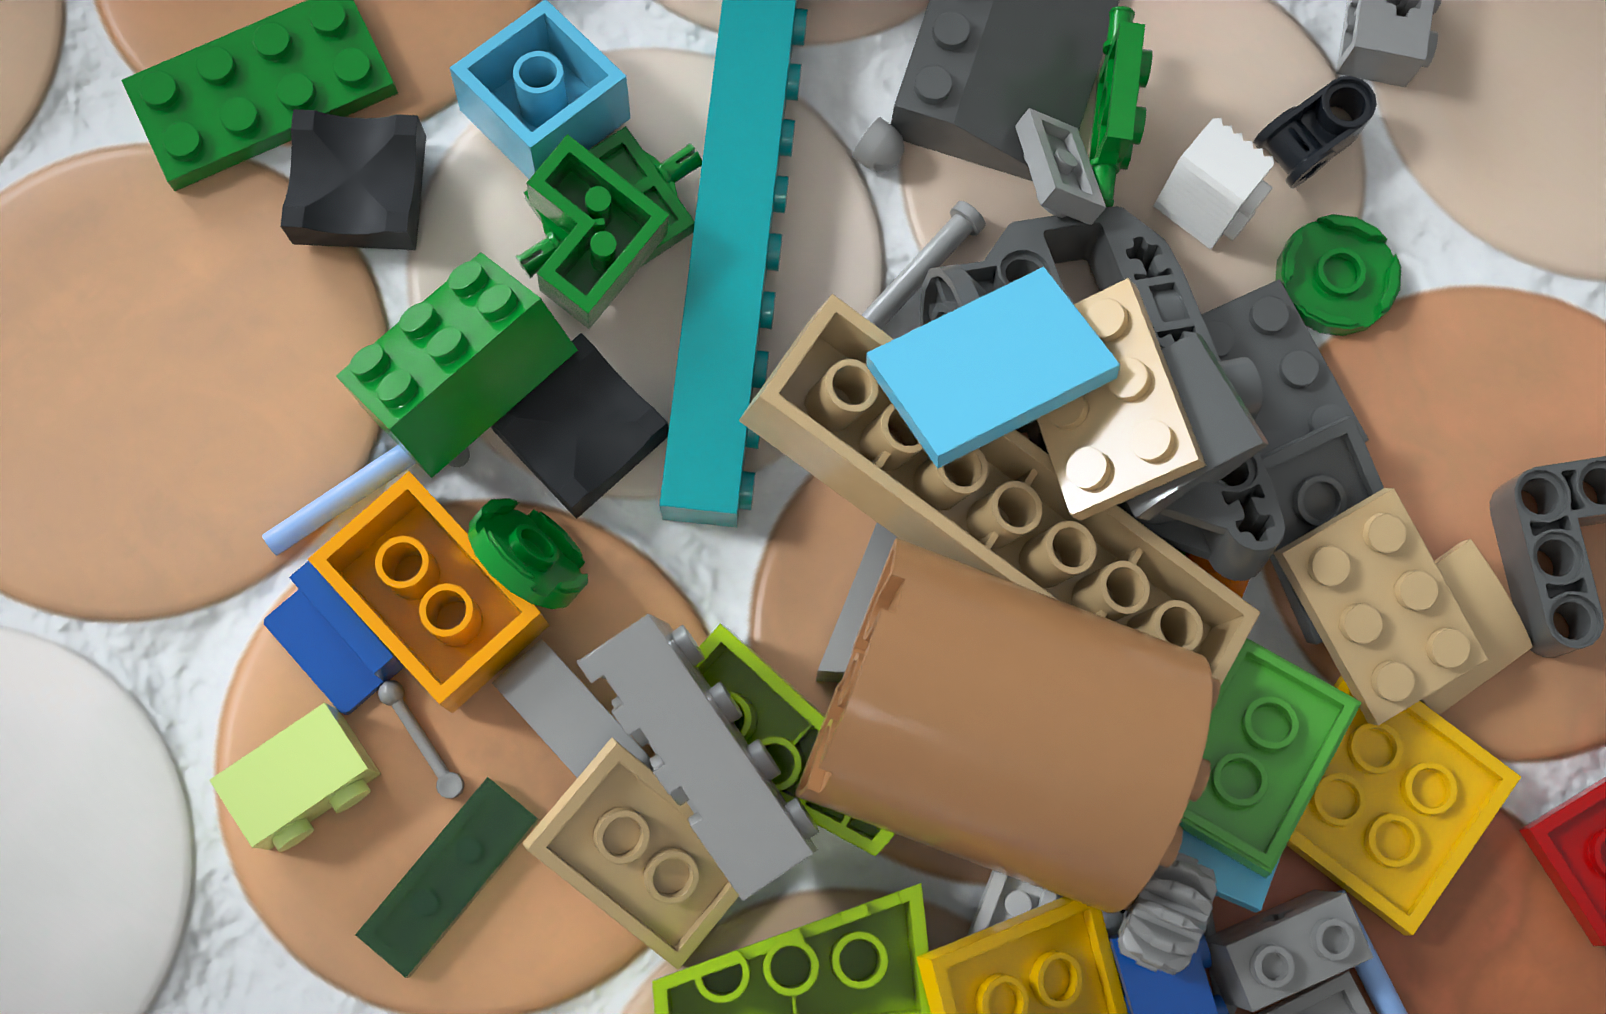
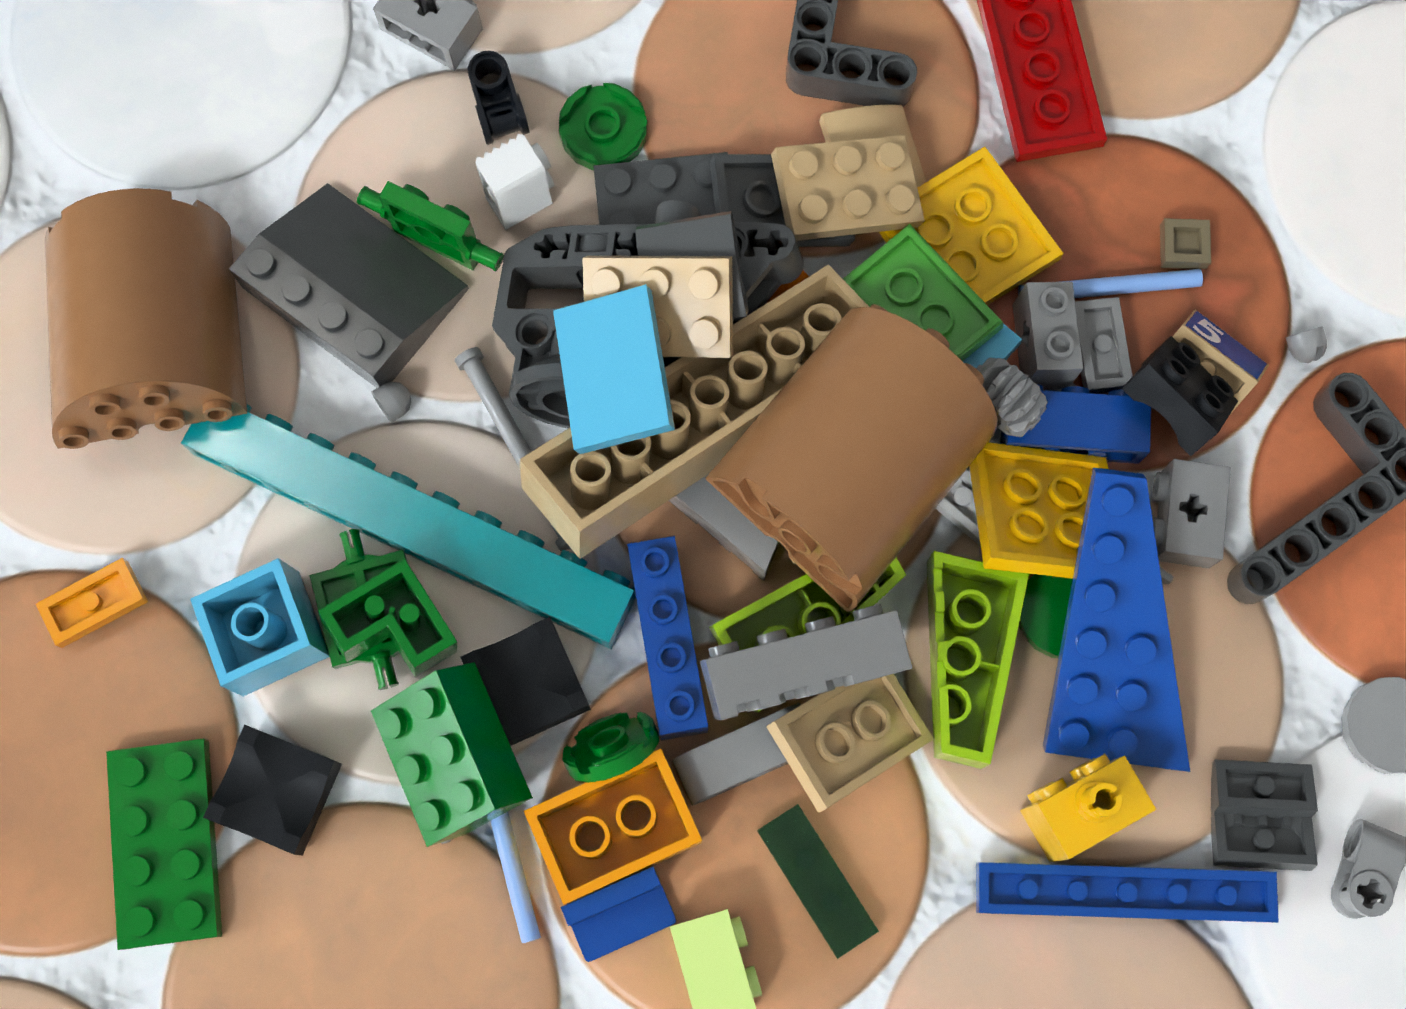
camera: 65 degrees left, 0 degrees up
(448, 783) = (751, 861): light grey hinge -> none
(701, 571) = (667, 638): none -> blue brick
(1059, 167) = (463, 279): light grey plate -> none

